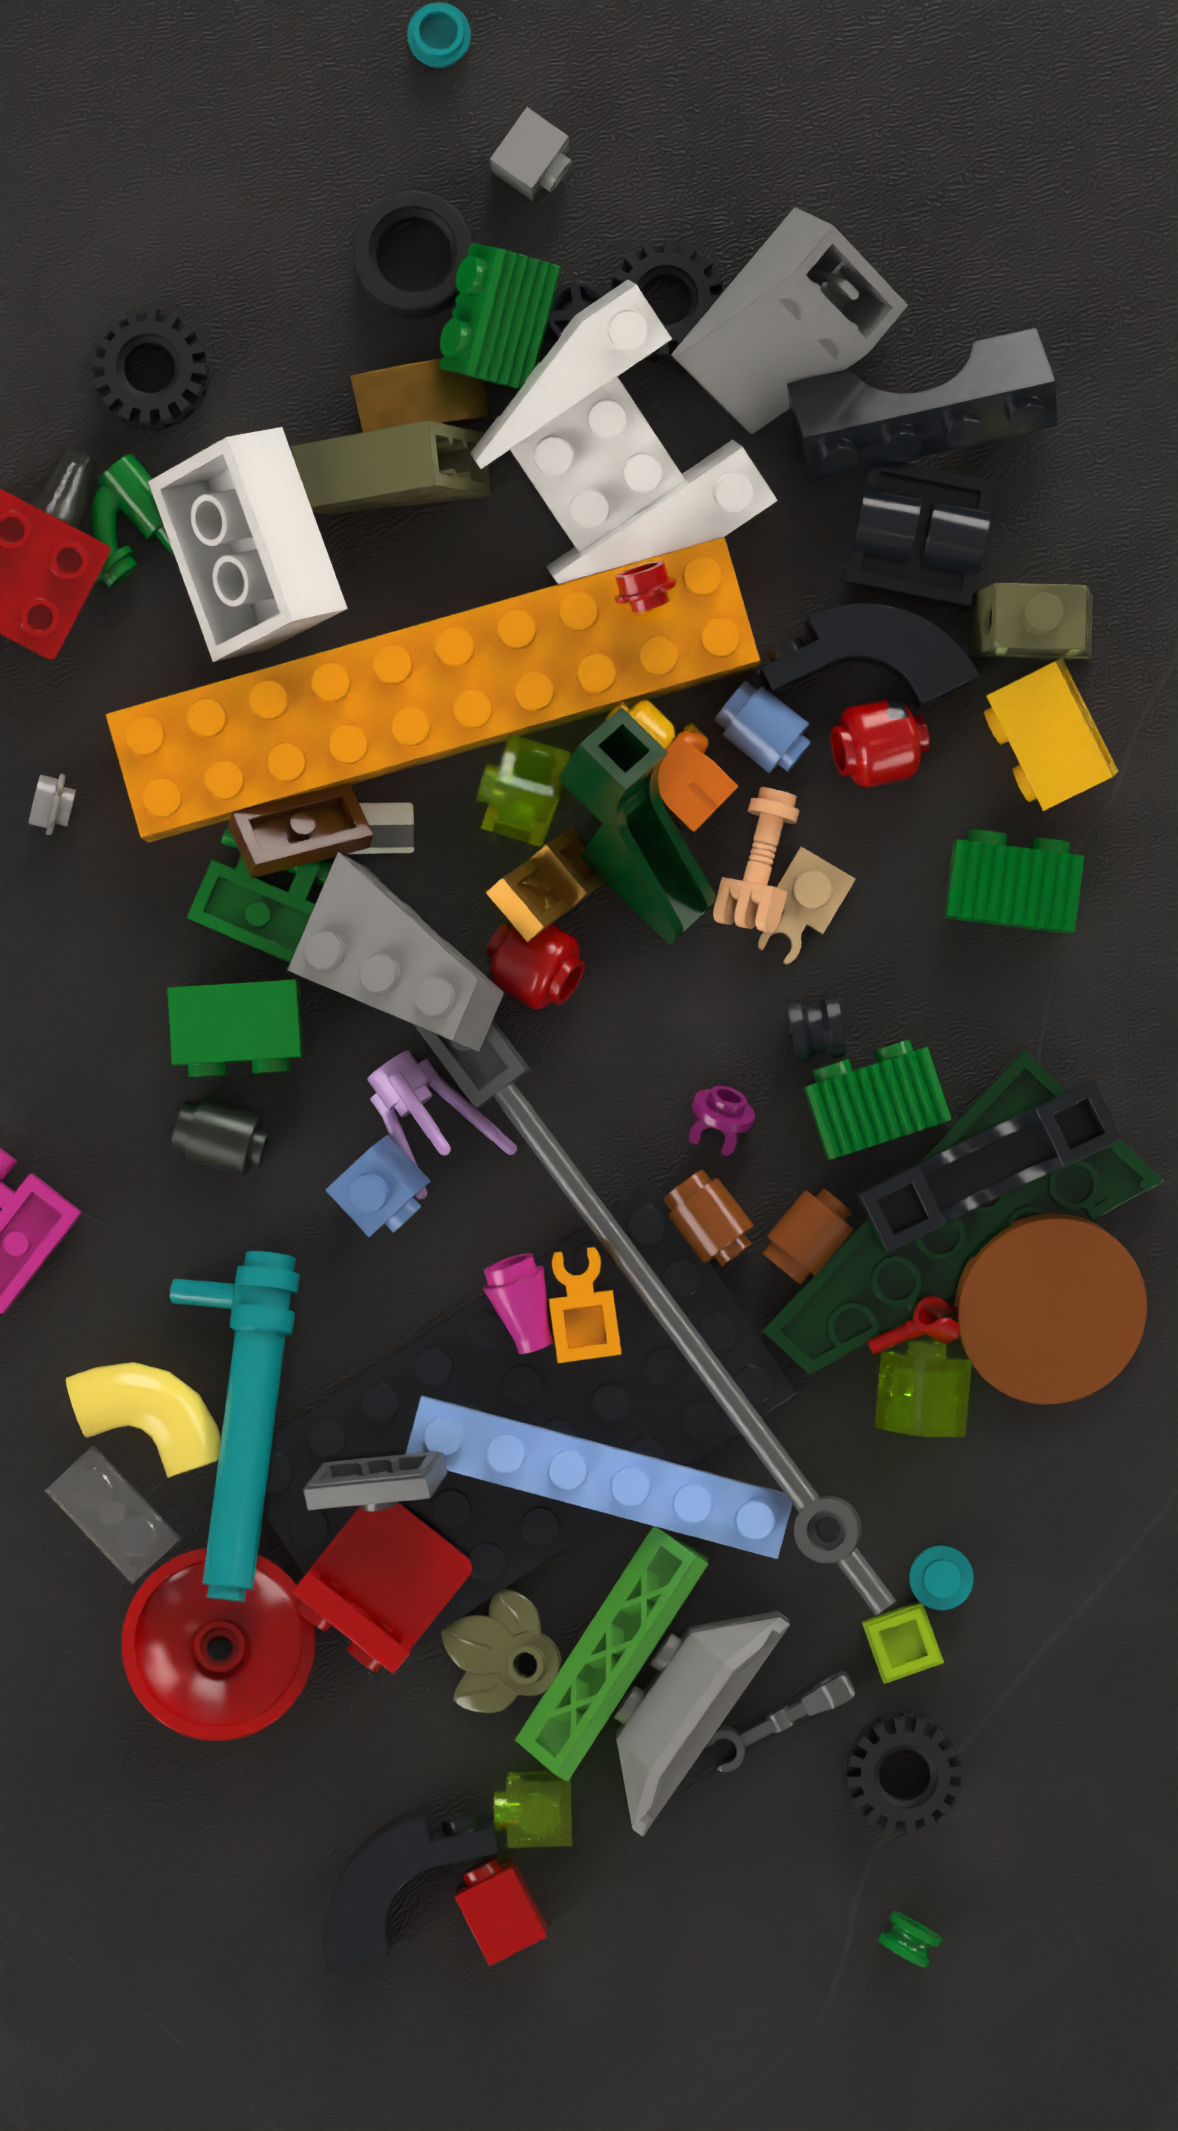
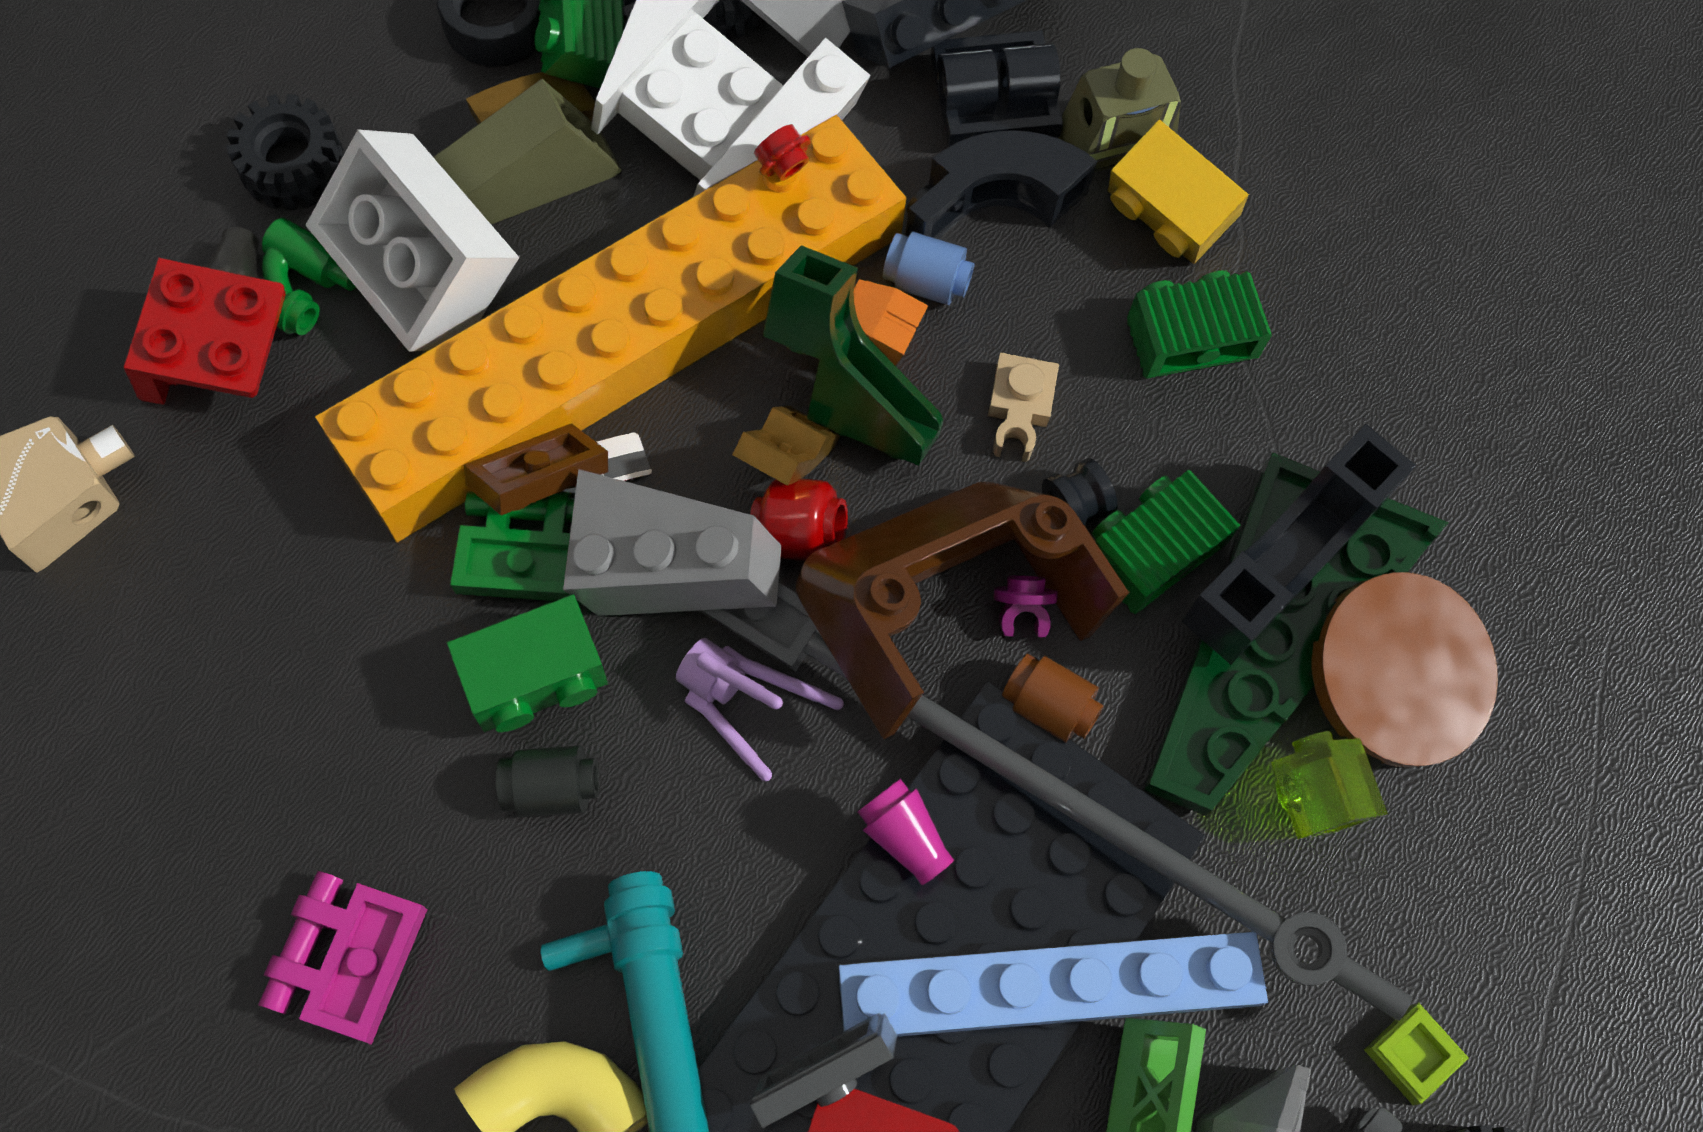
camera: 30 degrees left, 20 degrees down
(51, 803) = (289, 529): light grey plate -> none
(380, 1187) = (722, 772): medium blue brick -> none
(522, 790) = (734, 373): clear neon green brick -> none
(563, 1052) = (867, 588): none -> reddish brown windscreen
(583, 1319) = (973, 826): light orange plate -> none
(752, 900) = (964, 331): light nougat hinge -> none
(808, 1234) = (1152, 680): dark orange brick -> none
(879, 742) = (1032, 248): red head -> none
(925, 1321) = (1304, 713): red hand -> none
(941, 1577) = (1425, 970): teal plate -> none

